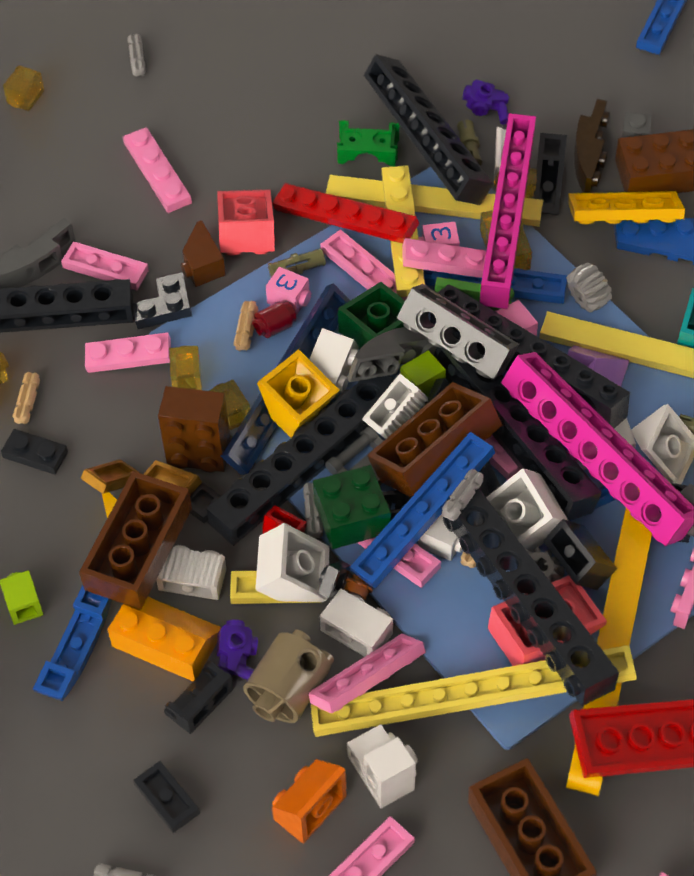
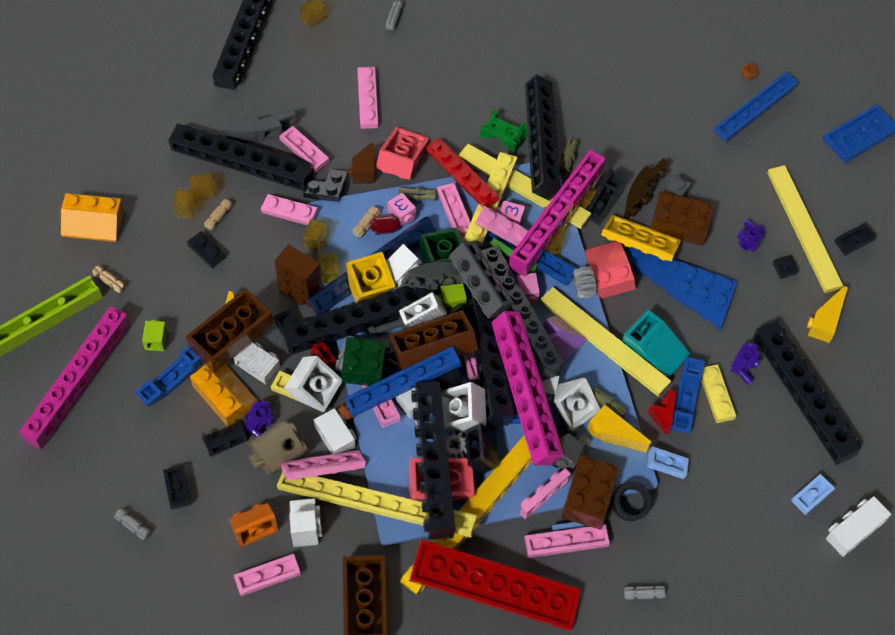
camera: 20 degrees right, 5 degrees up
(108, 476) = (236, 283): pearl gold tile -> none
(174, 475) = (273, 300): pearl gold tile -> none
(333, 578) = (331, 401): black plate -> none
(462, 494) = (426, 383): light grey axle -> none
(483, 96) = (592, 128): dark purple piece -> none
(615, 254) = (610, 269): none -> coral slope

